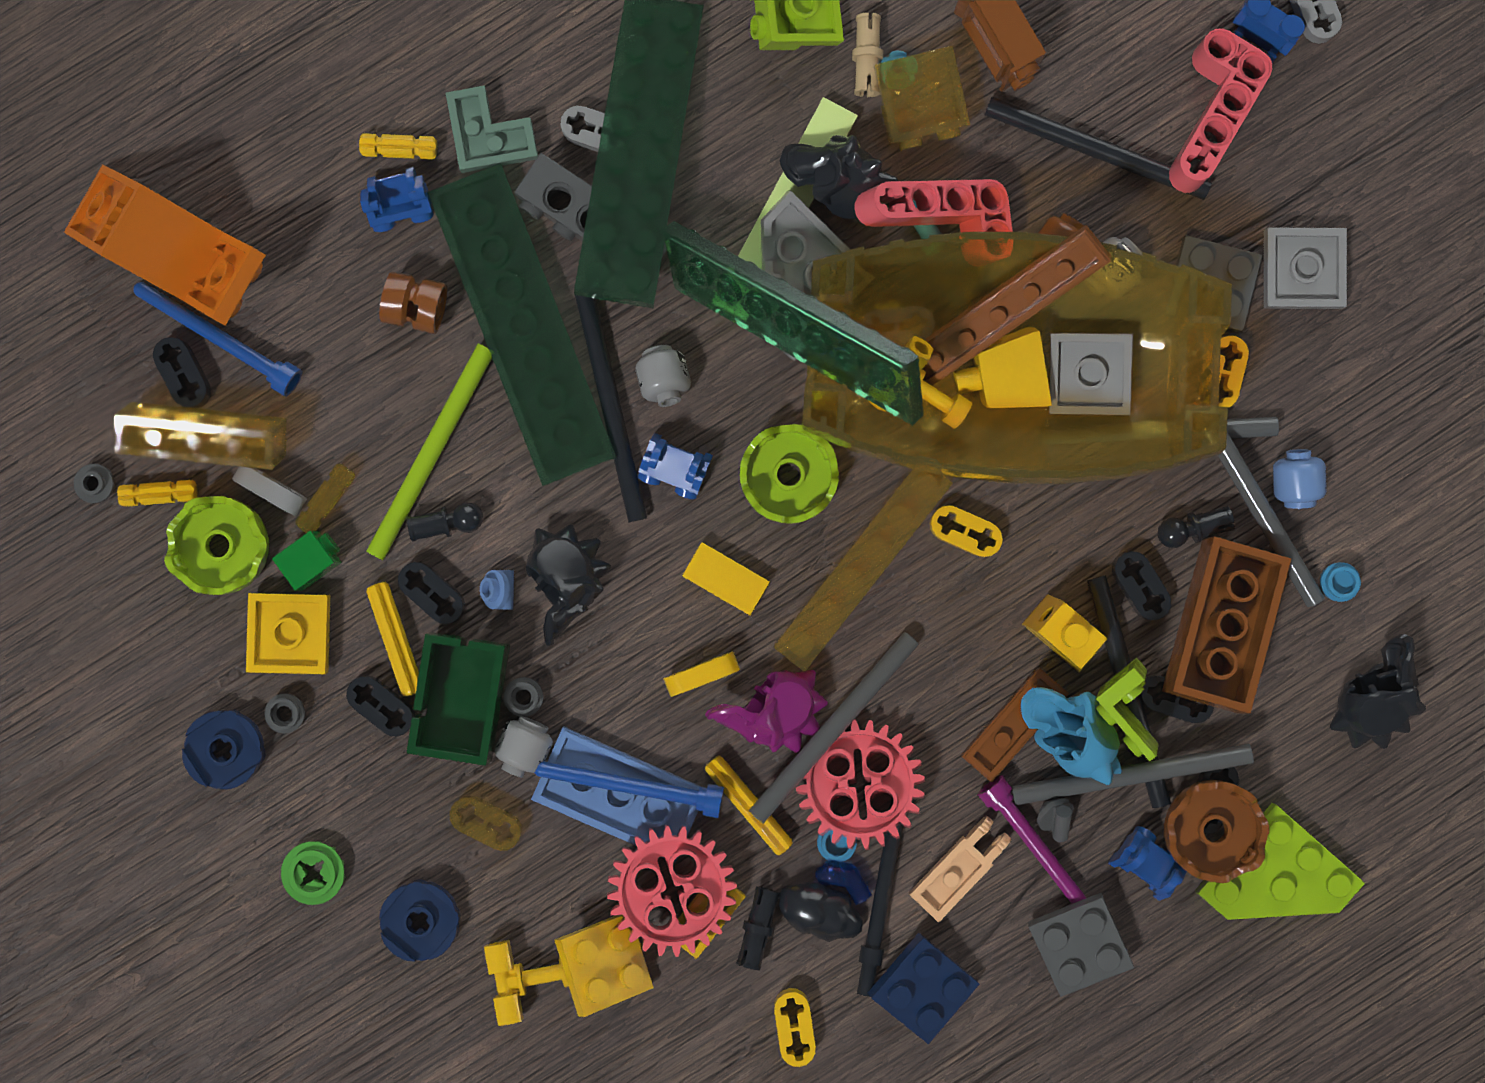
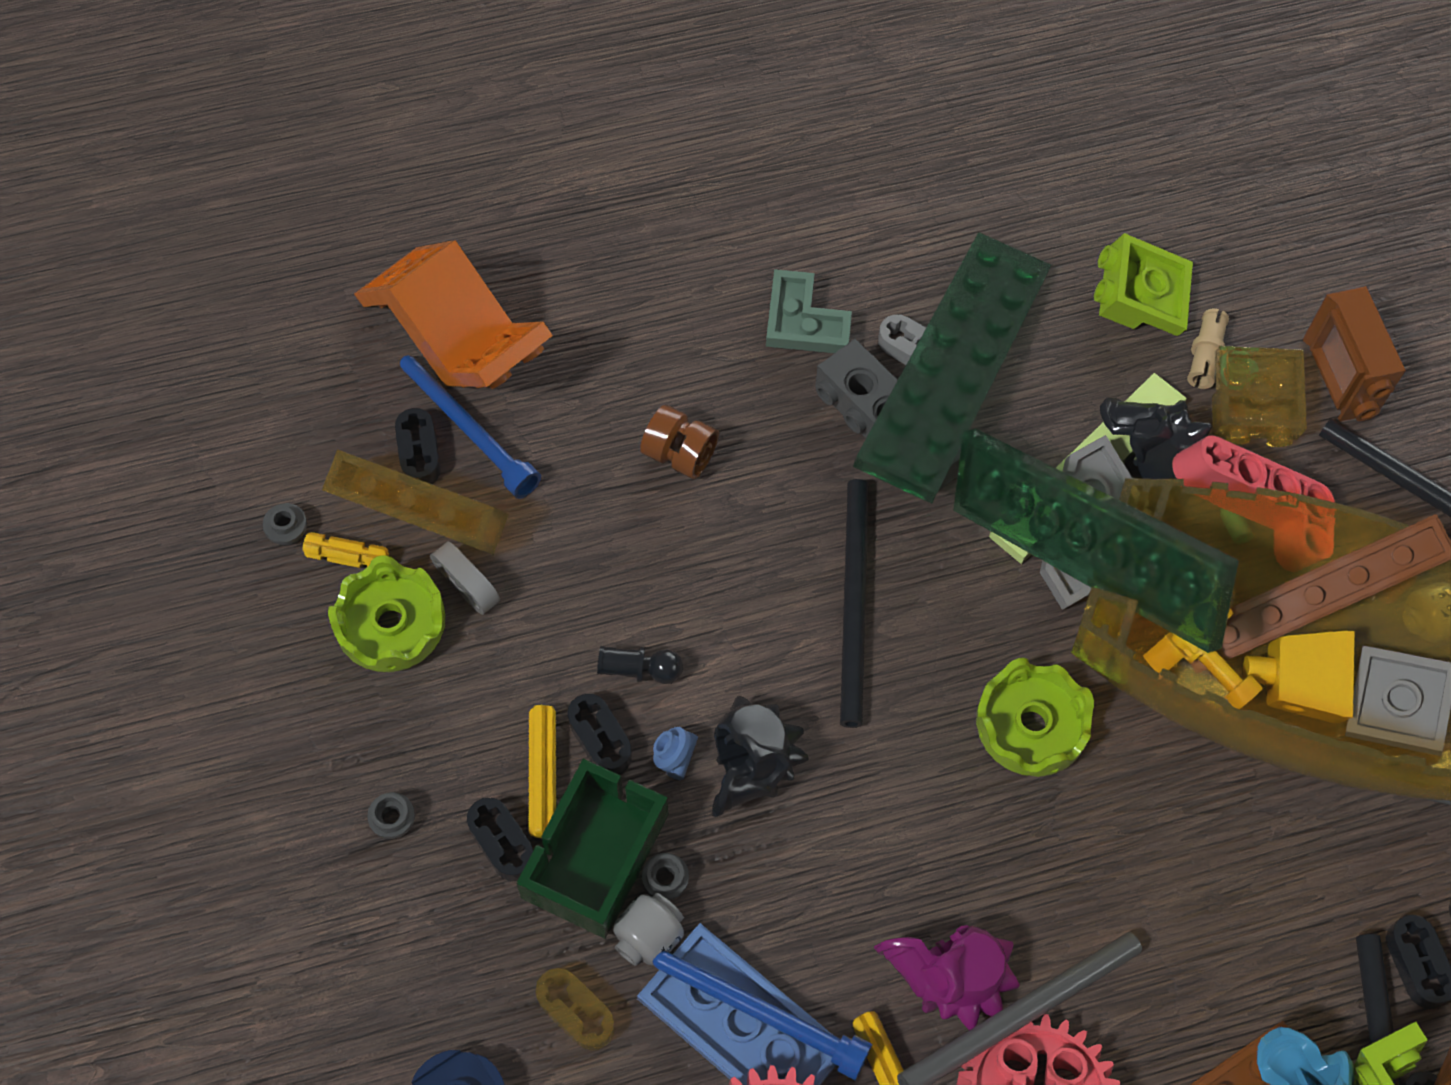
camera: 15 degrees right, 25 degrees down
(201, 743) = (285, 820): dark blue plate -> none
(288, 633) = (428, 730): yellow plate -> none
(294, 873) = (331, 1003): bright green gear -> none
(308, 559) = (479, 658): green brick -> none
(325, 498) = (518, 606): clear yellow axle -> none
(395, 200) = (694, 347): blue piece -> none
(398, 146) = (710, 306): yellow axle -> none
(430, 452) = (645, 594): lime piece -> none
(522, 325) = (785, 503): clear green plate -> none
(663, 375) = (920, 582): light grey head -> none
(674, 467) = (910, 674): piece -> none
(701, 674) = (879, 908): yellow beam -> none
(725, 578) = (933, 814): yellow tile -> none
(861, 566) = (1094, 839): clear yellow brick -> none
(969, 522) = (1222, 840): yellow beam -> none
(1065, 632) = (1326, 985): yellow torso -> none

